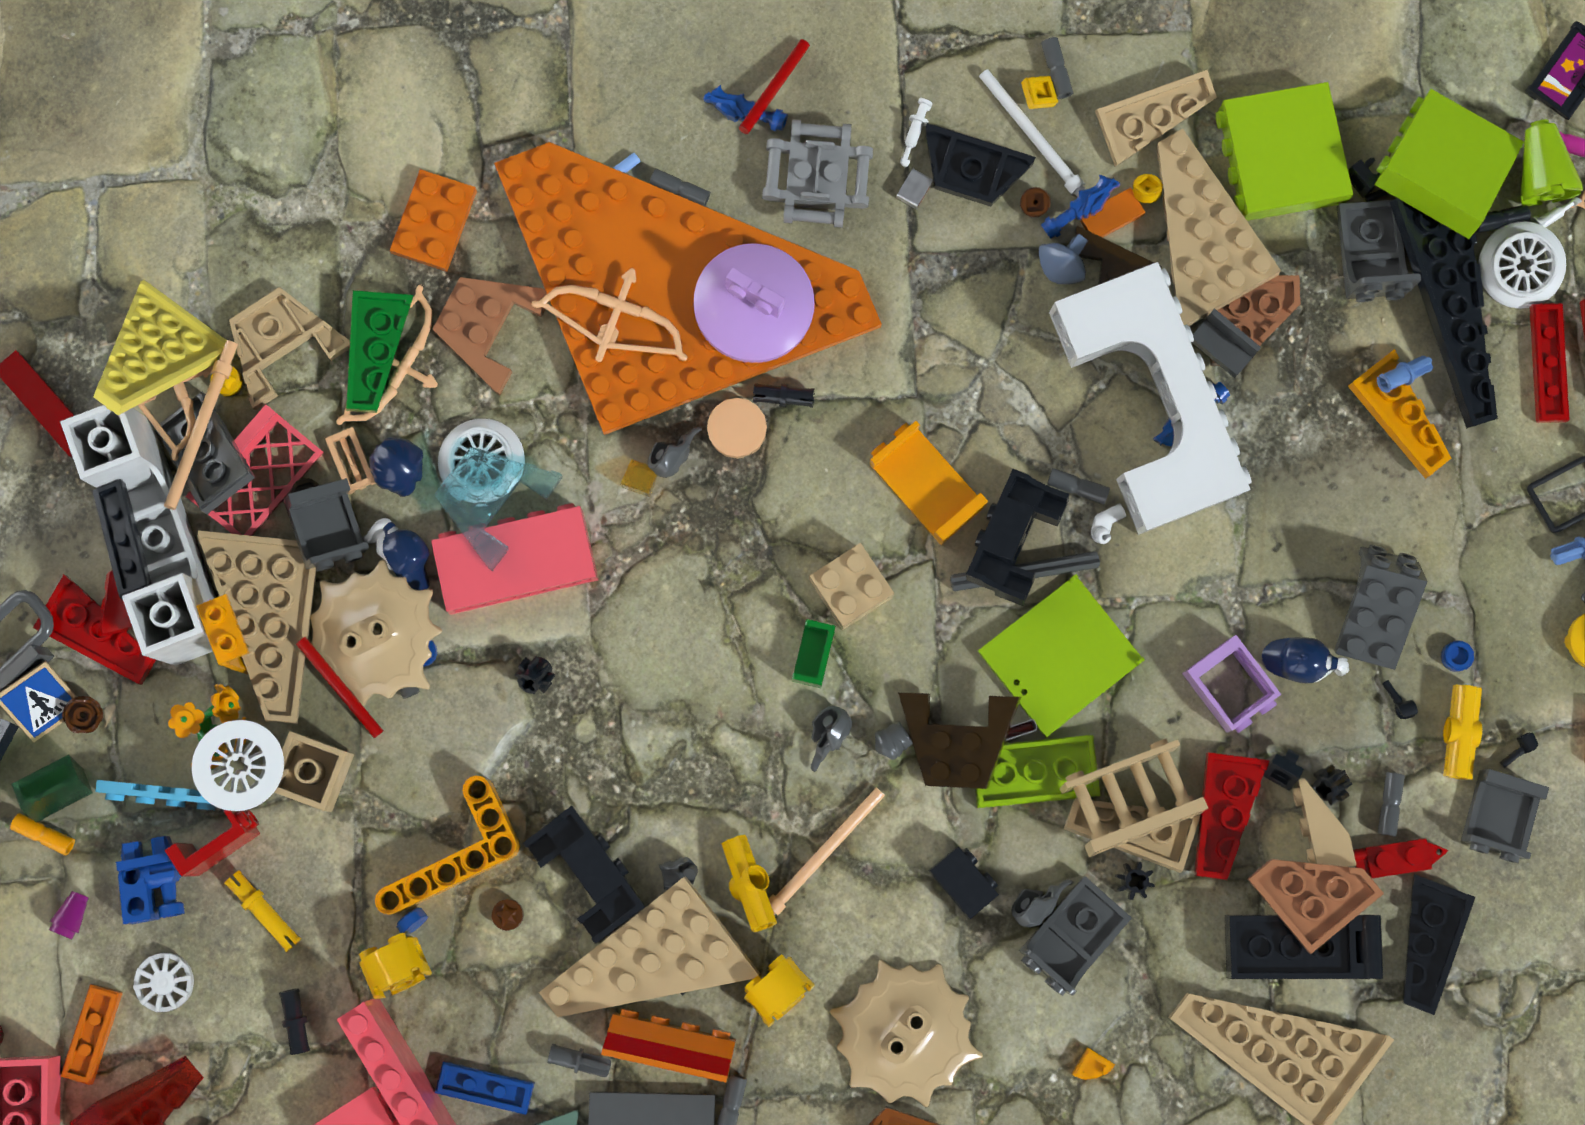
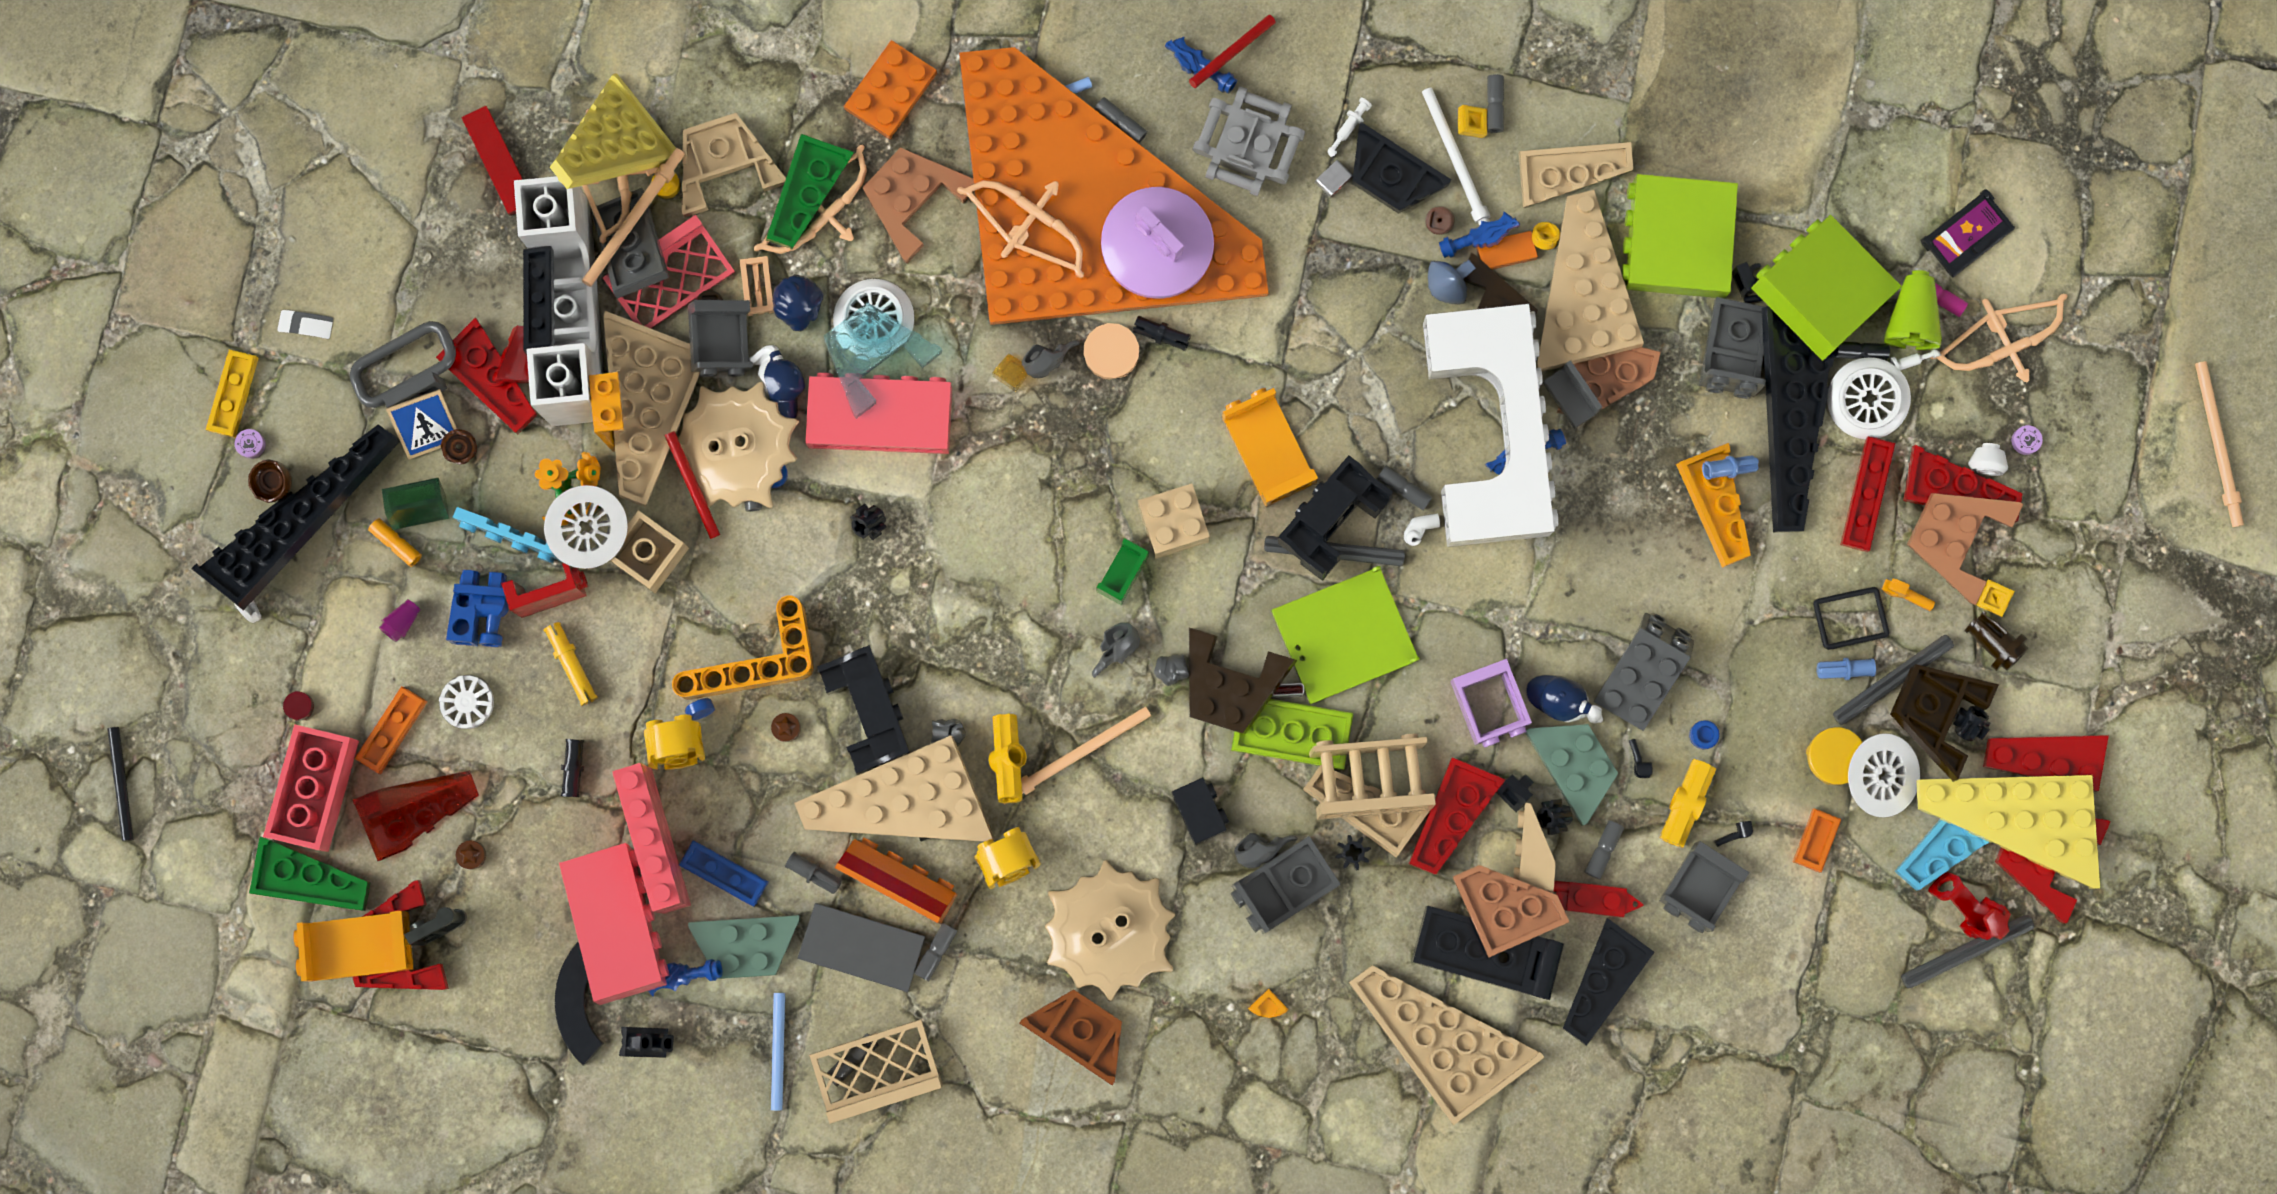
camera: 15 degrees right, 0 degrees up
(1336, 724) = (1576, 765): none -> sand green wing

